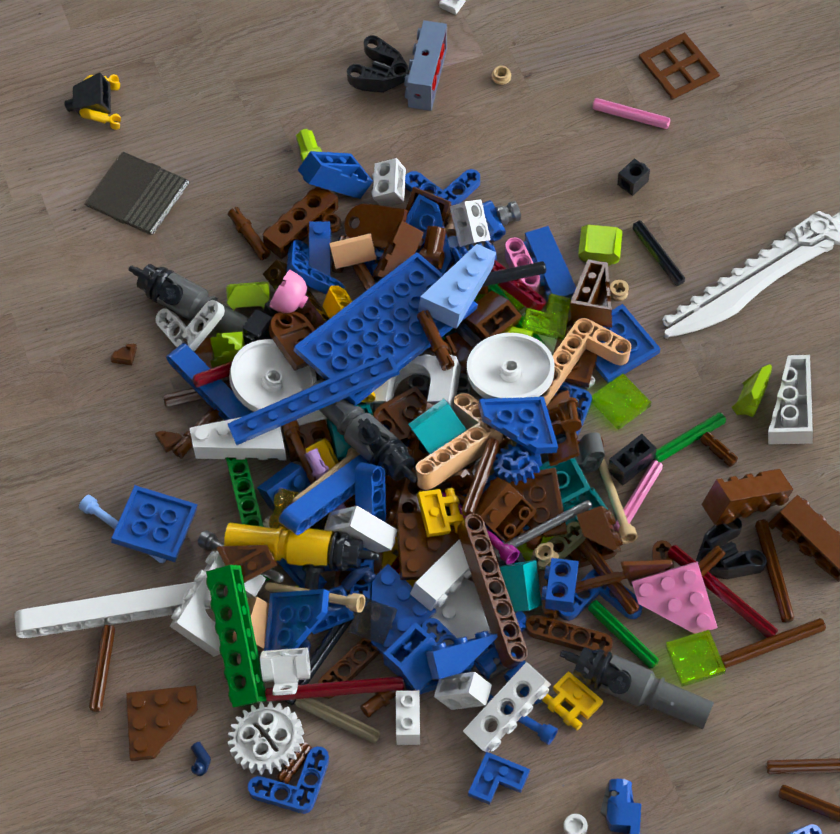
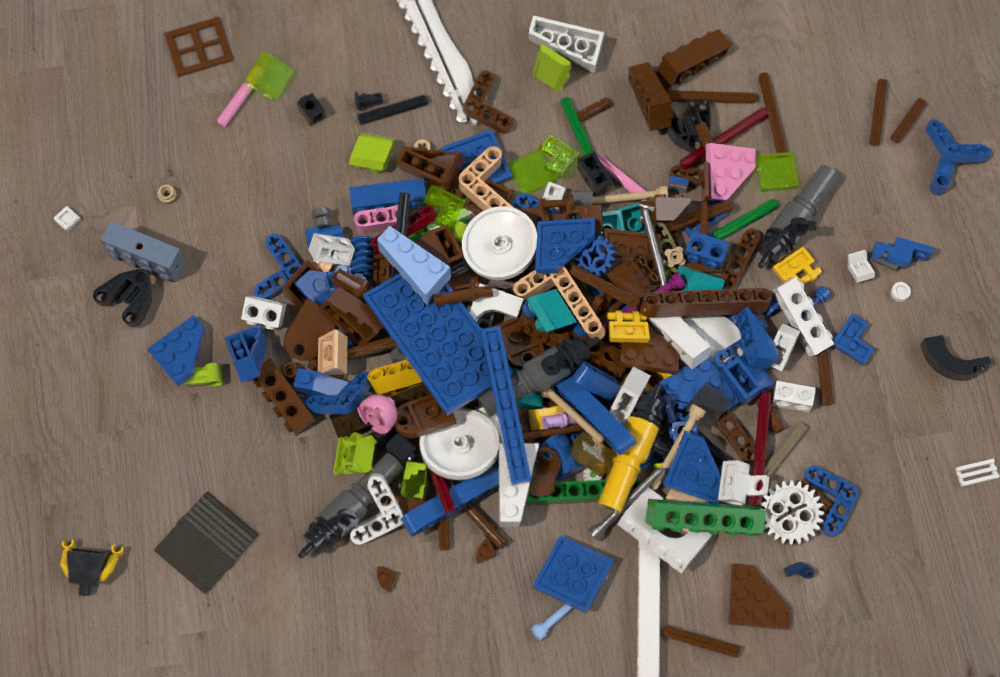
camera: 80 degrees left, 10 degrees up
(245, 228) = (275, 448): reddish brown pin -> none
(245, 466) = (545, 478): none -> reddish brown piece
(252, 559) = (641, 488): reddish brown wing -> none
(331, 121) = (179, 350): none -> blue plate
(442, 753) = (825, 378): none -> reddish brown axle
(594, 770) = (859, 266): none -> white bracket
(598, 424) = (554, 192): none -> white slope
(647, 550) = (678, 184): none -> tile
(649, 424) = (562, 155): none -> clear neon green plate
(660, 223) = (367, 99): none -> black pin
(661, 131) = (269, 75): none -> clear neon green plate
(688, 328) = (478, 104): none -> reddish brown beam

